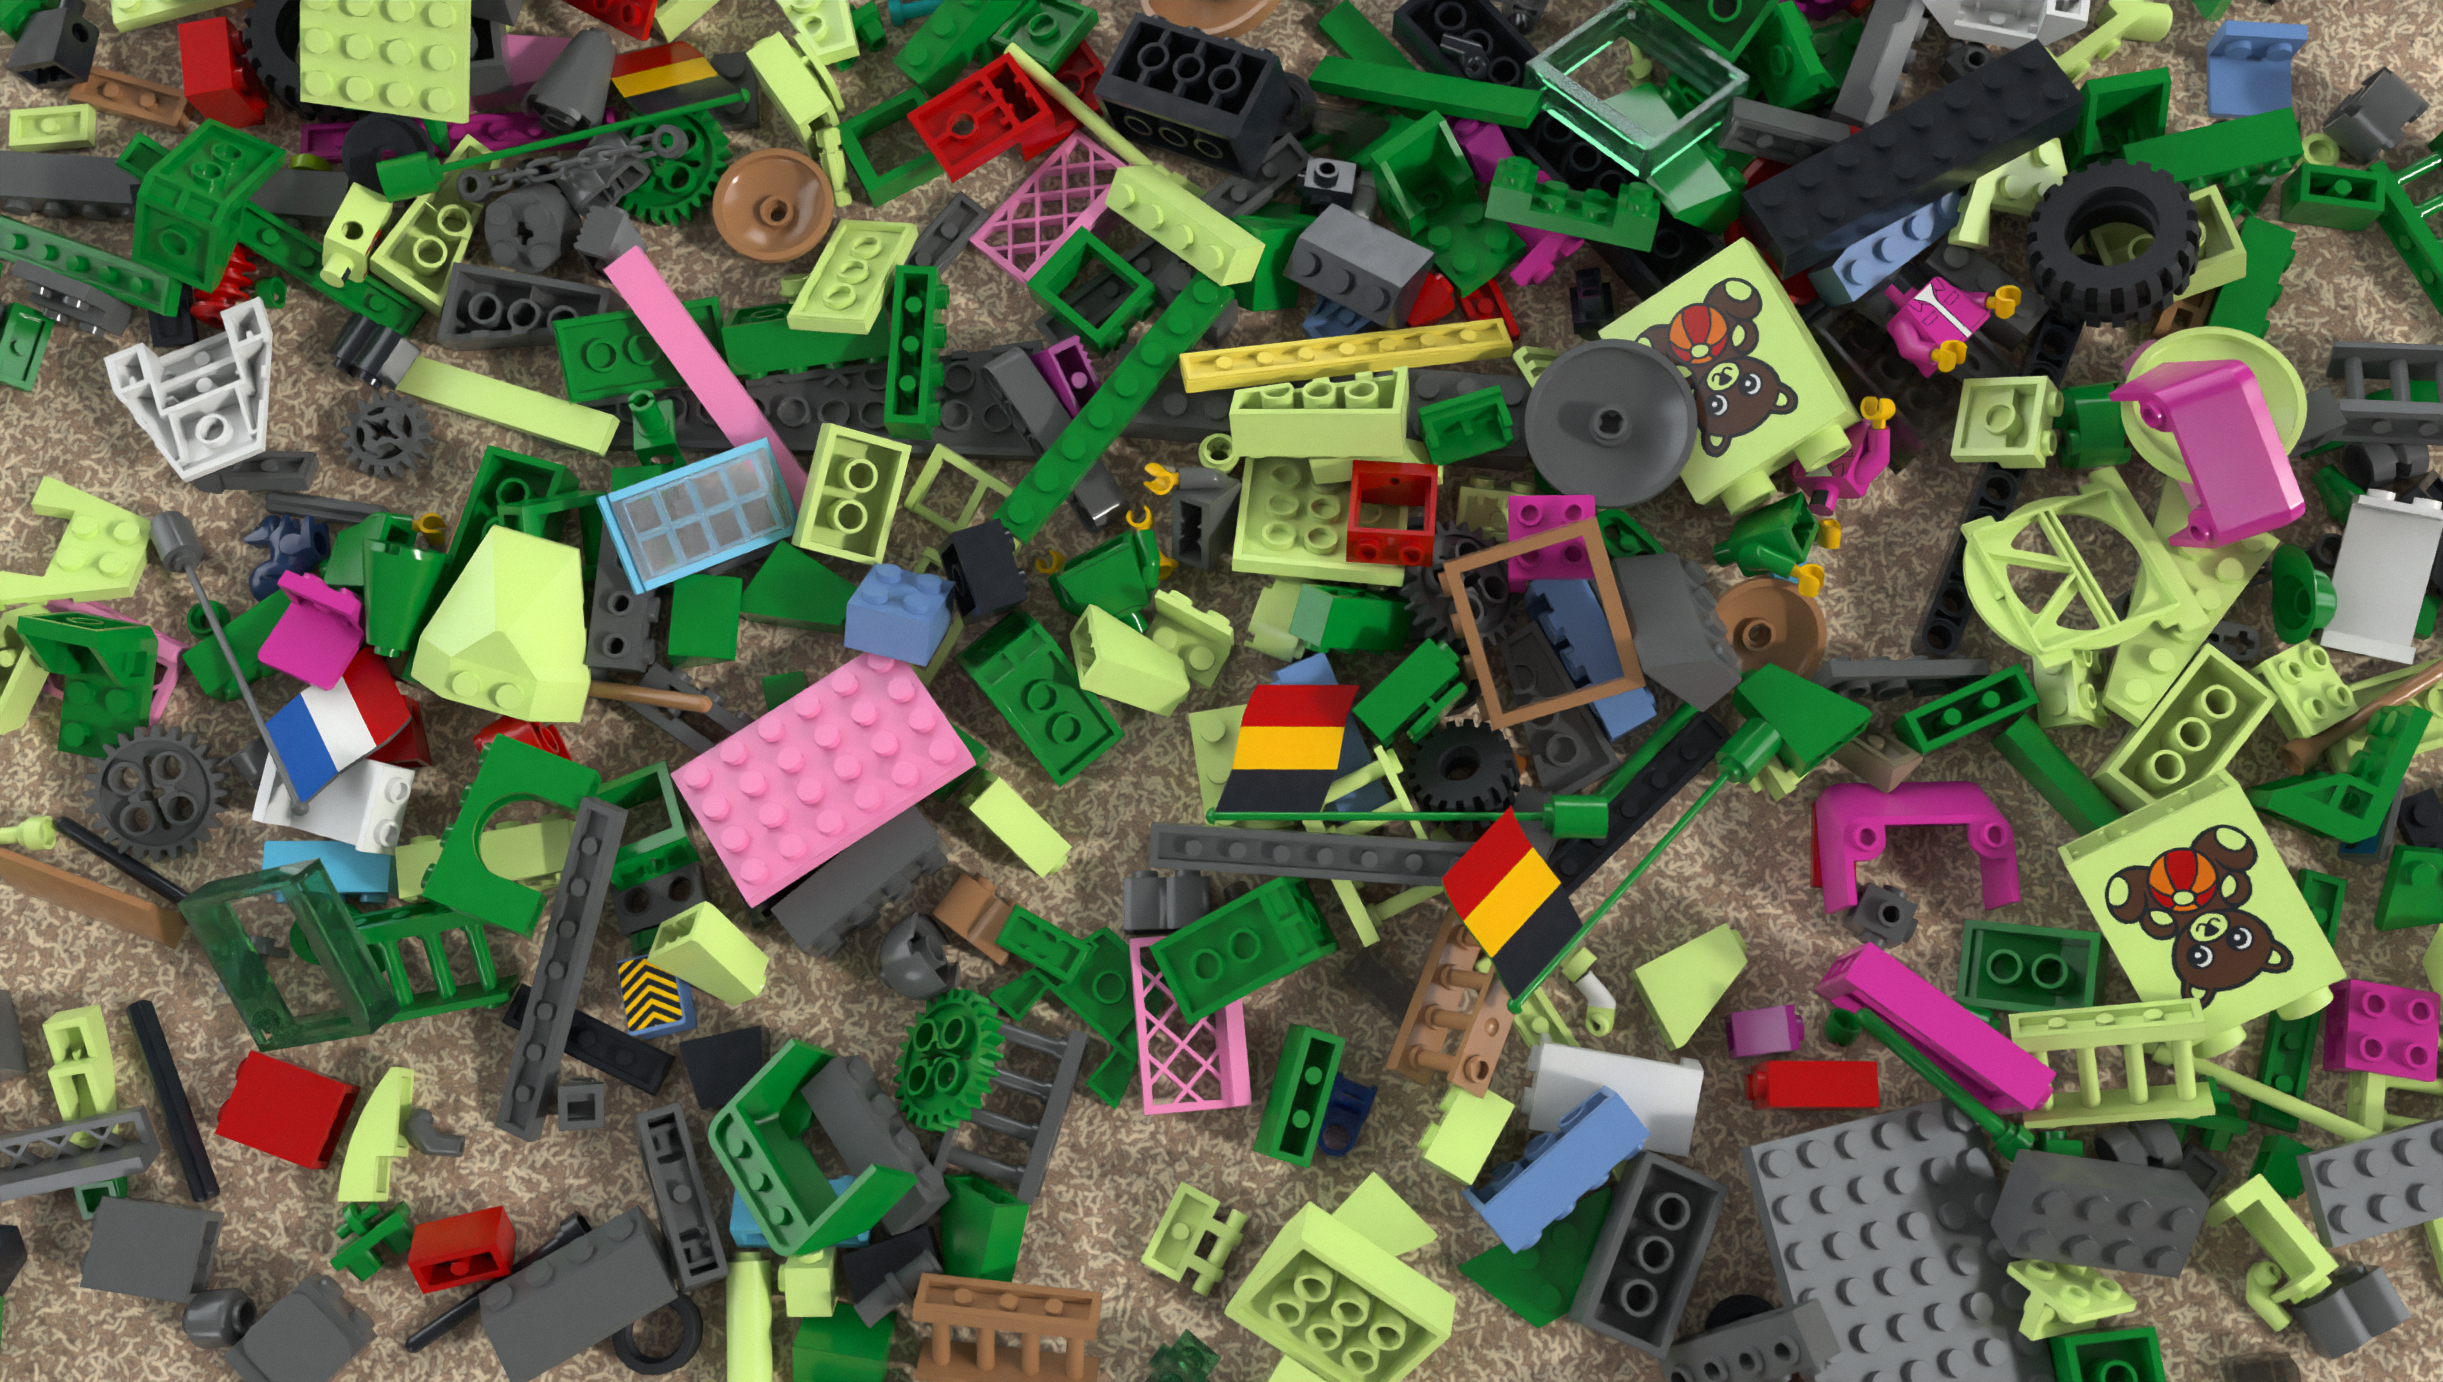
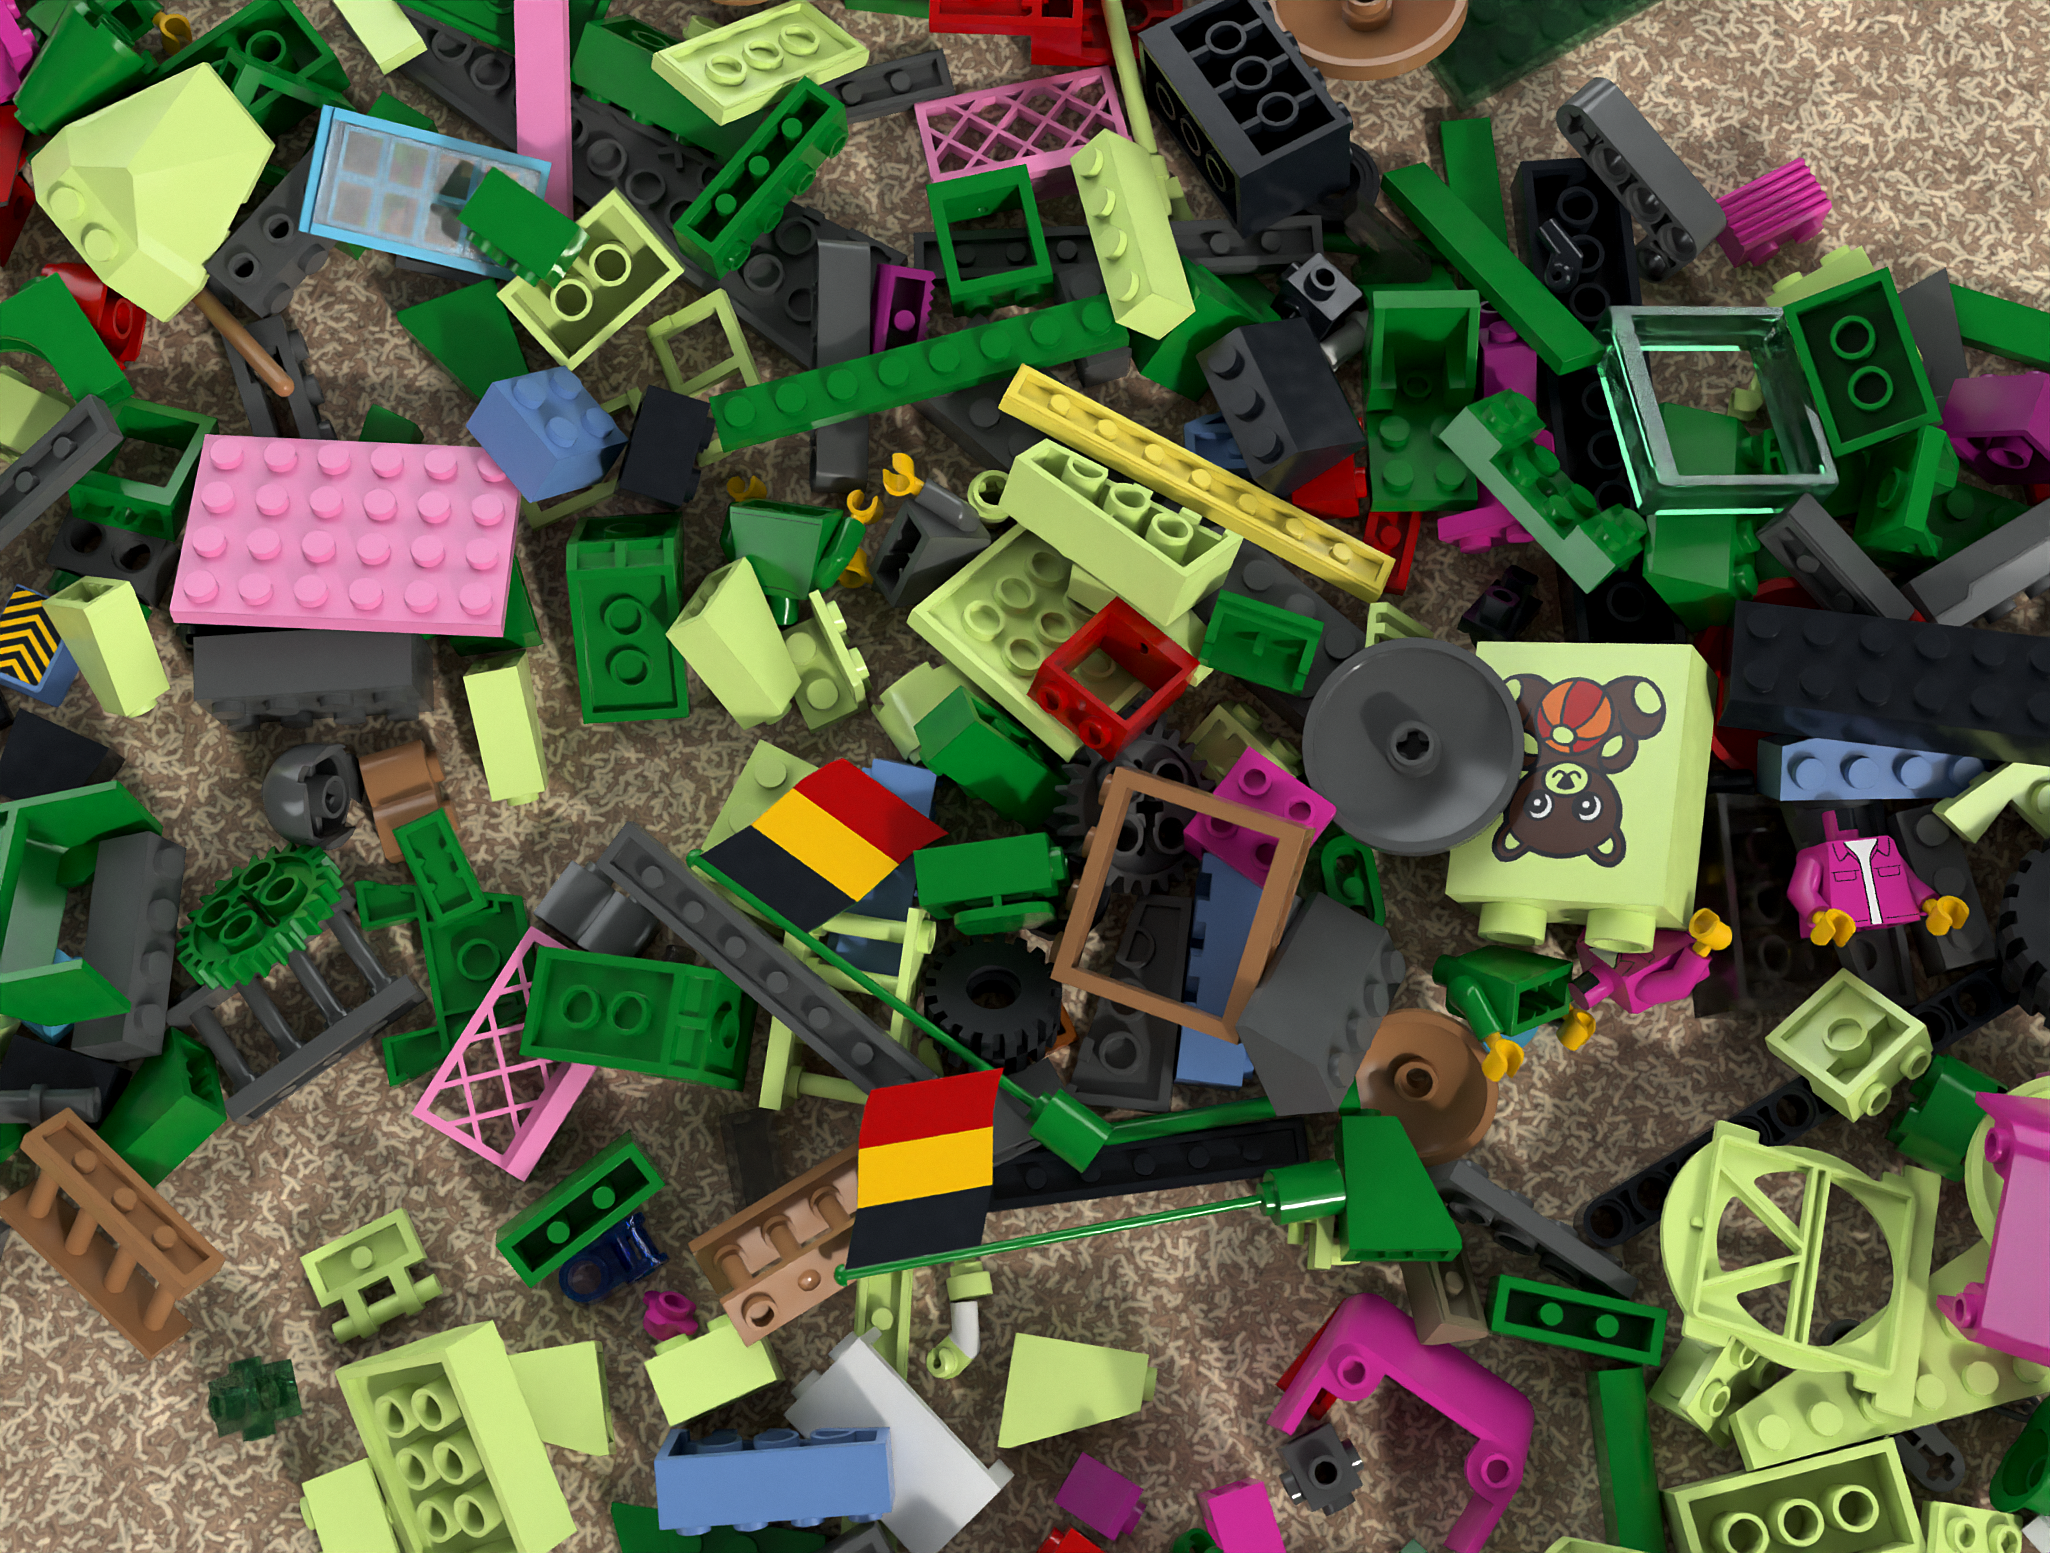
camera: 30 degrees right, 0 degrees up
(654, 429) = (453, 81): green bracket -> none
(704, 620) = (356, 304): green slope -> none
(792, 489) = (521, 227): none -> green brick
(1405, 1122) = (668, 1315): none -> dark pink plate

